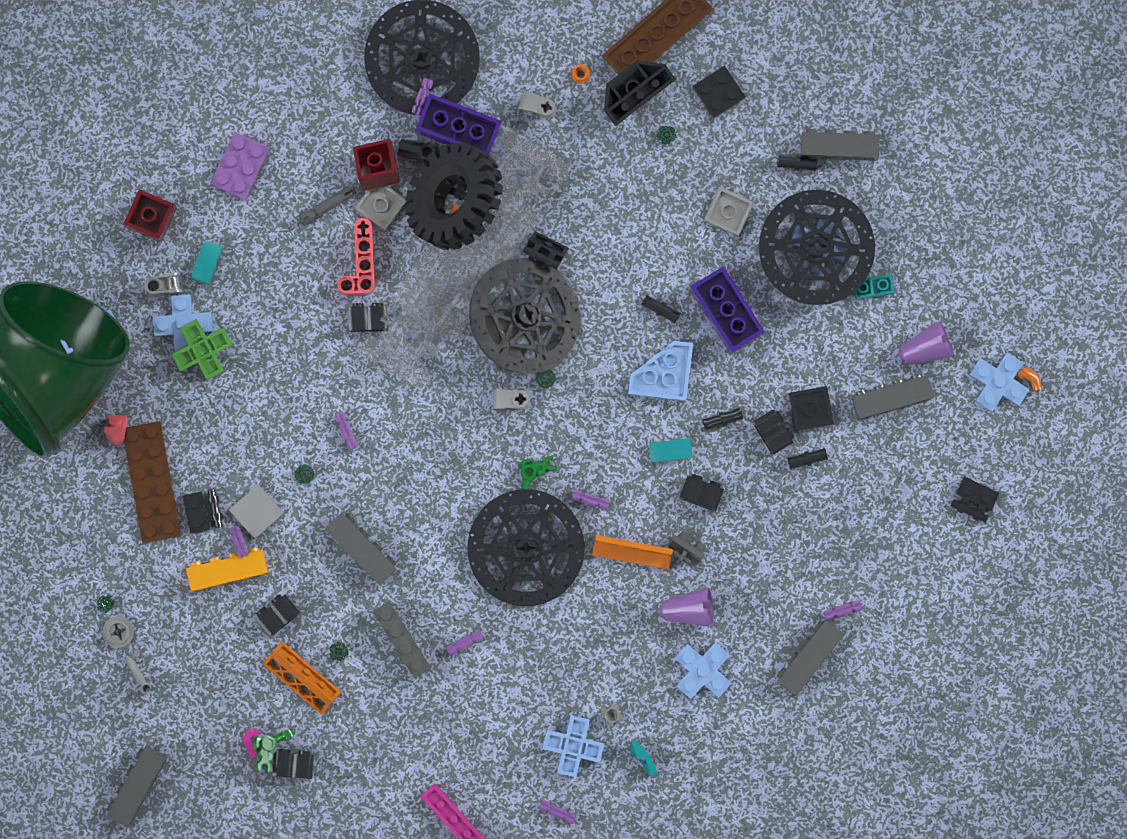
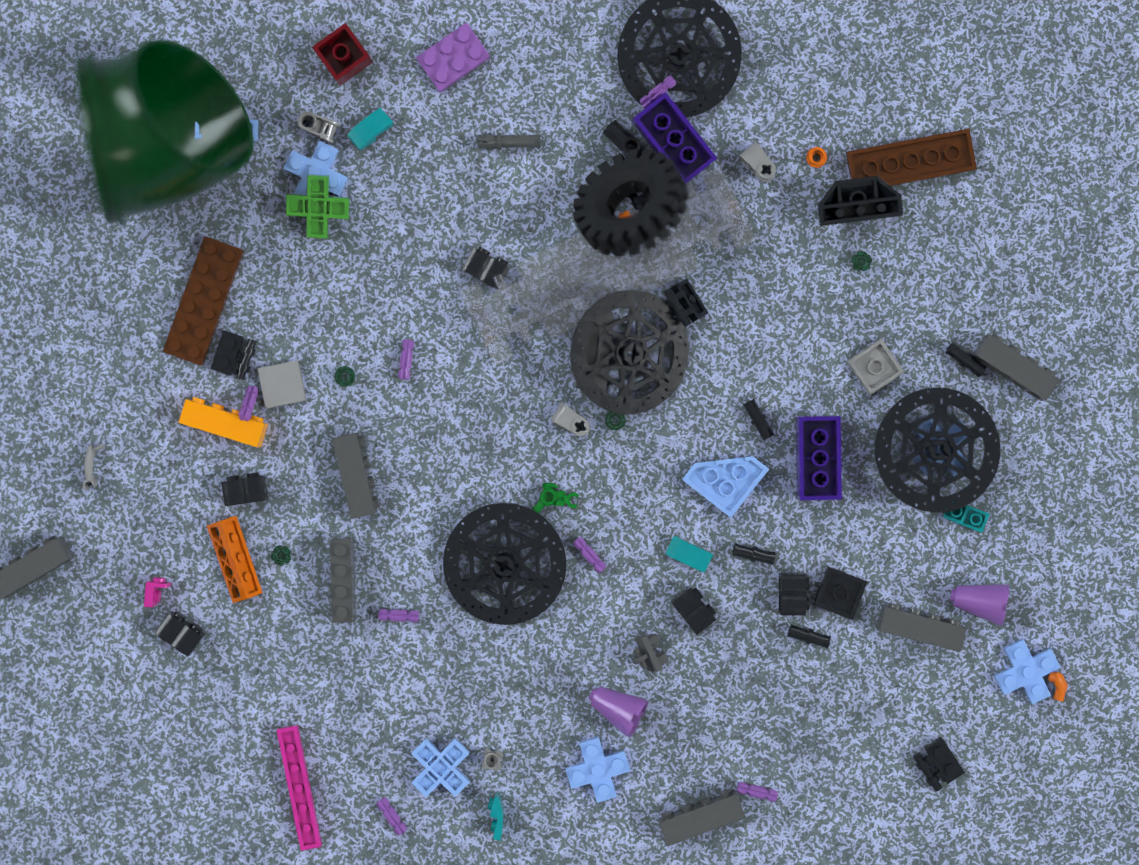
camera: 30 degrees right, 5 degrees up
(105, 603) = (97, 386): clear green plate -> none
(110, 627) = (89, 411): light grey gear -> none
(115, 429) = (198, 232): coral plate -> none
(266, 746) = (163, 603): green piece -> none
(361, 256) = (512, 208): coral beam -> none
(376, 164) = (577, 130): dark red brick -> none
(381, 206) = (560, 170): light grey tile -> none
(632, 552) = (598, 625): orange fence -> none
(719, 92) = (934, 250): black plate -> none

